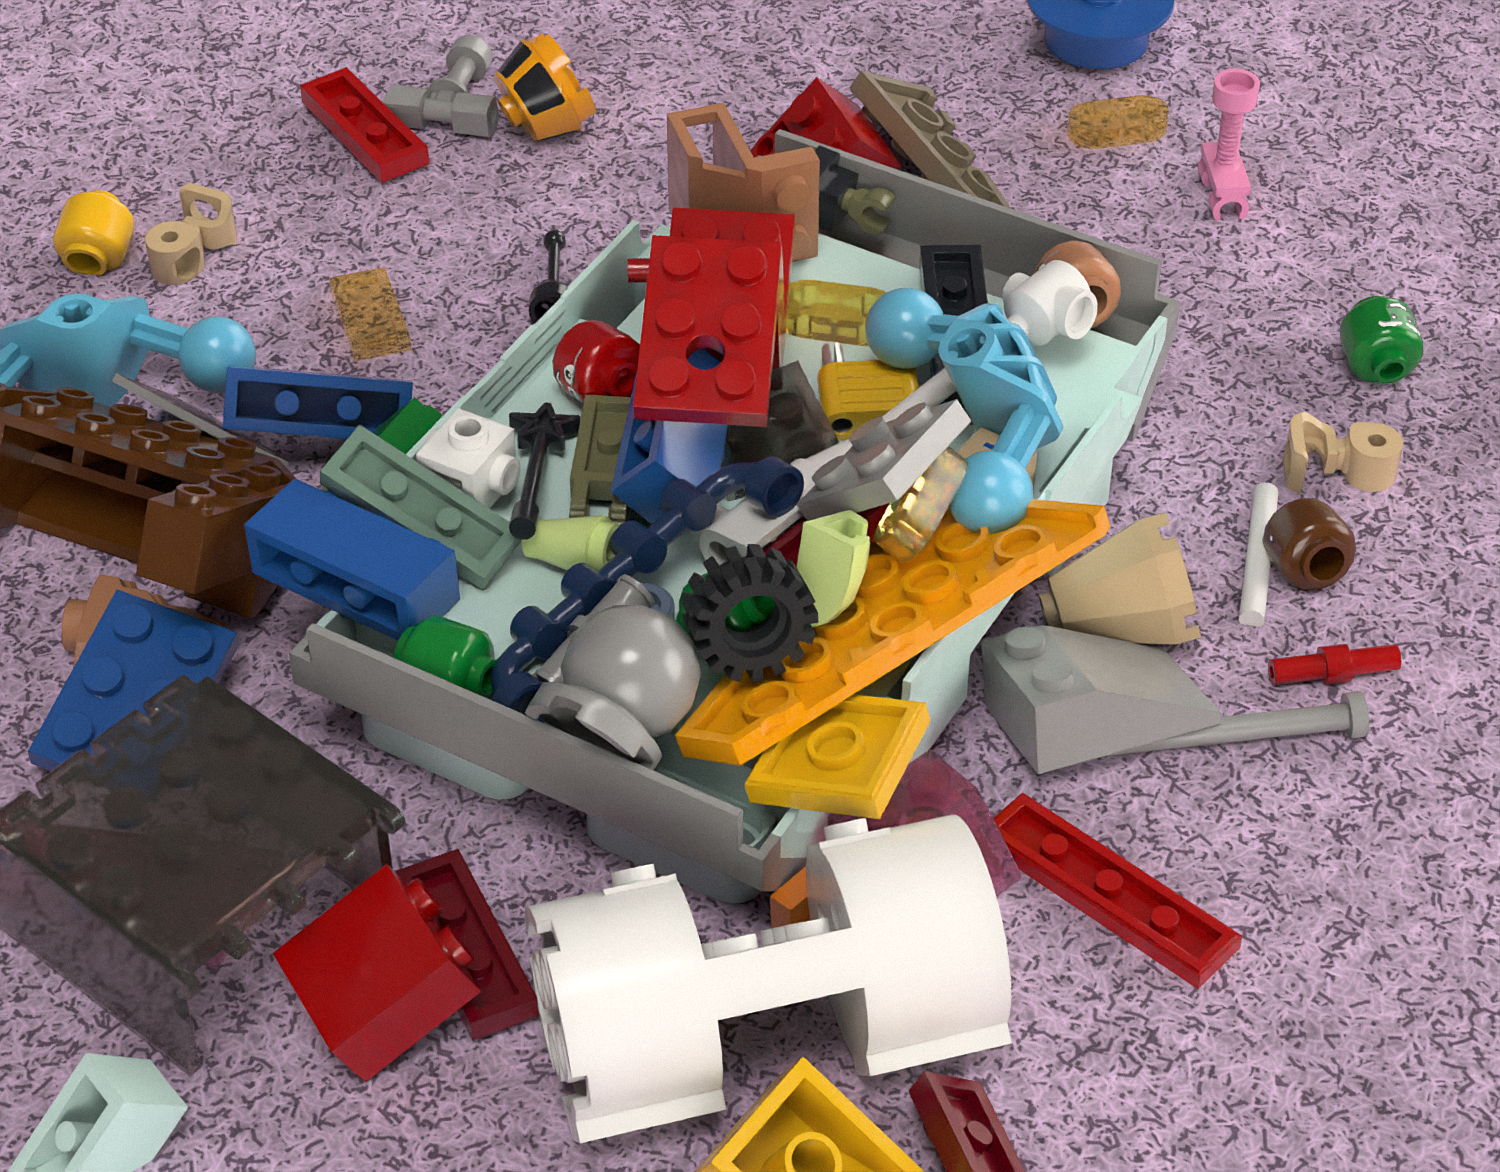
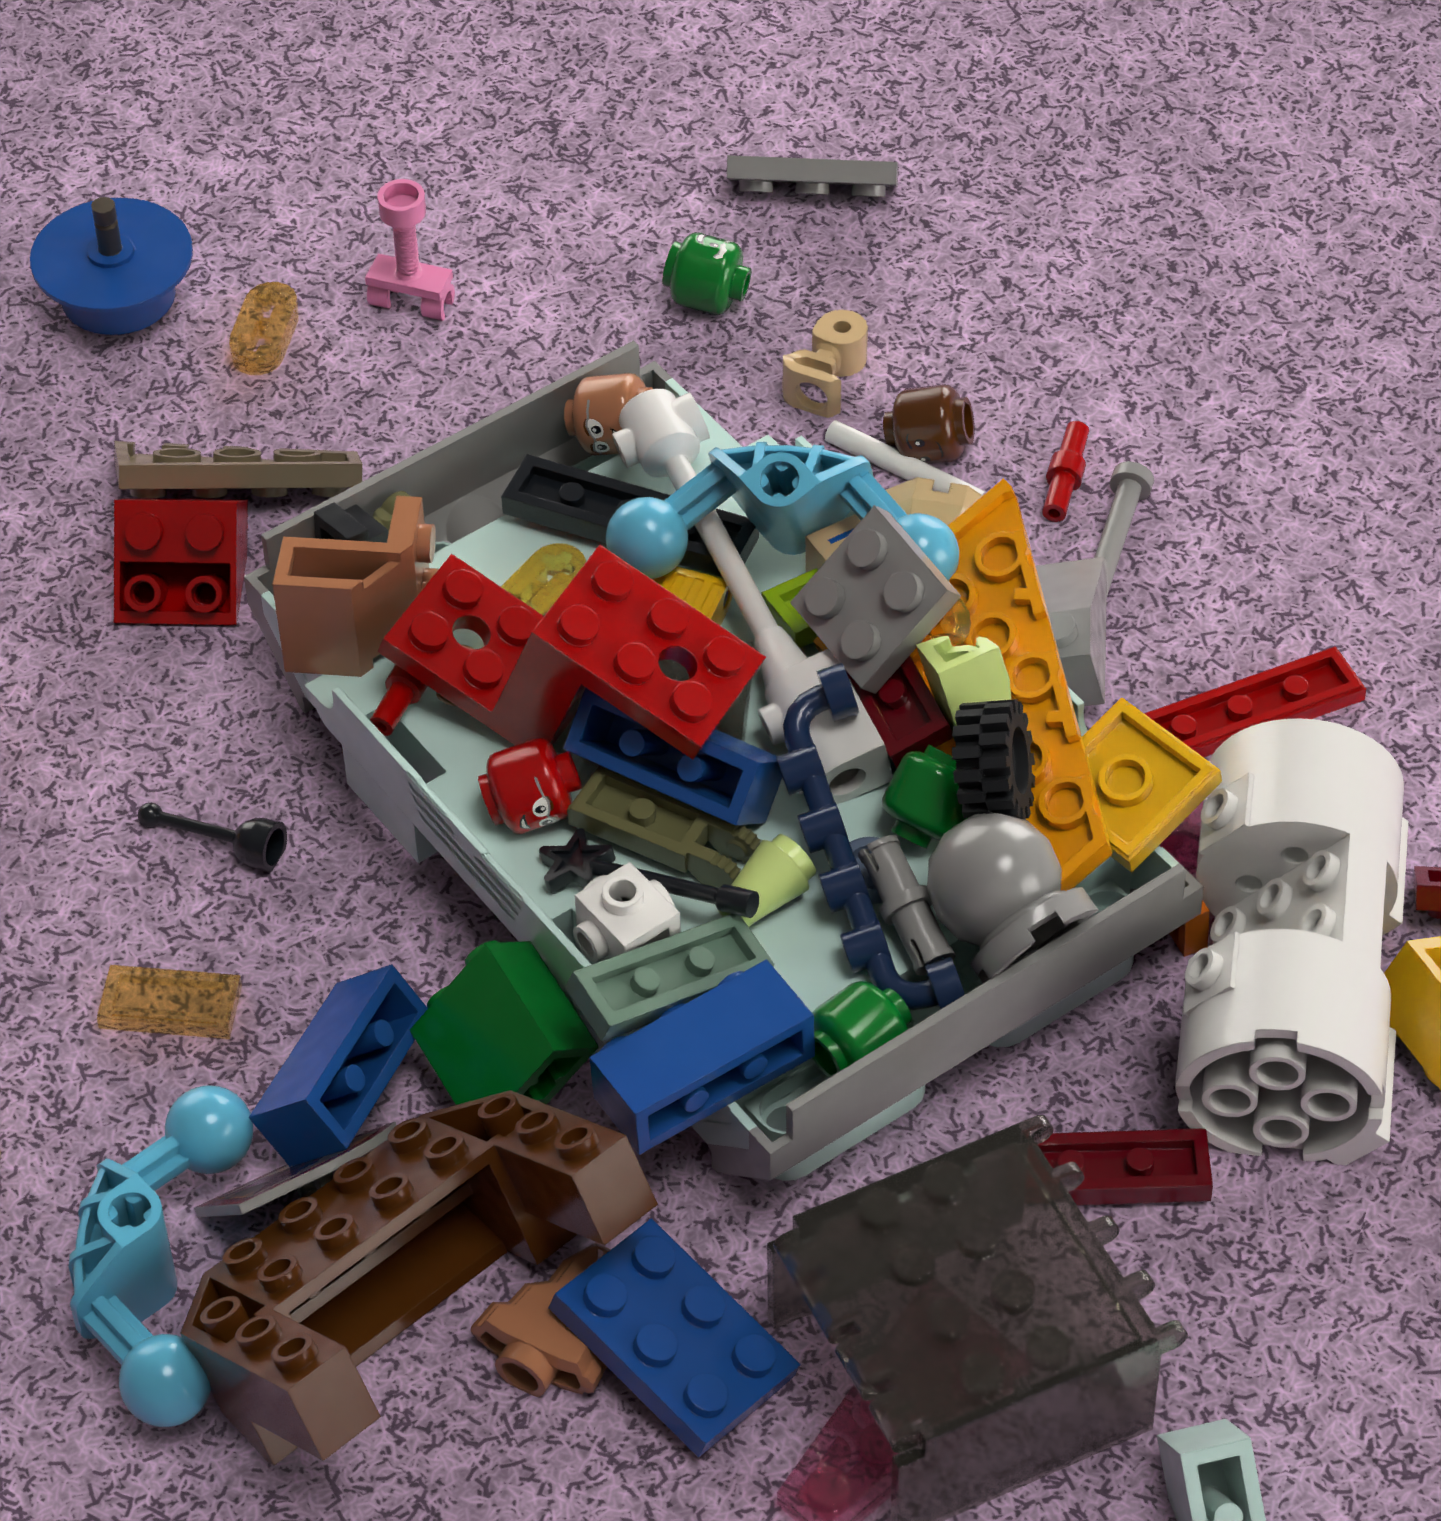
camera: 65 degrees left, 5 degrees up
(378, 971) = (1163, 1214): red brick -> none

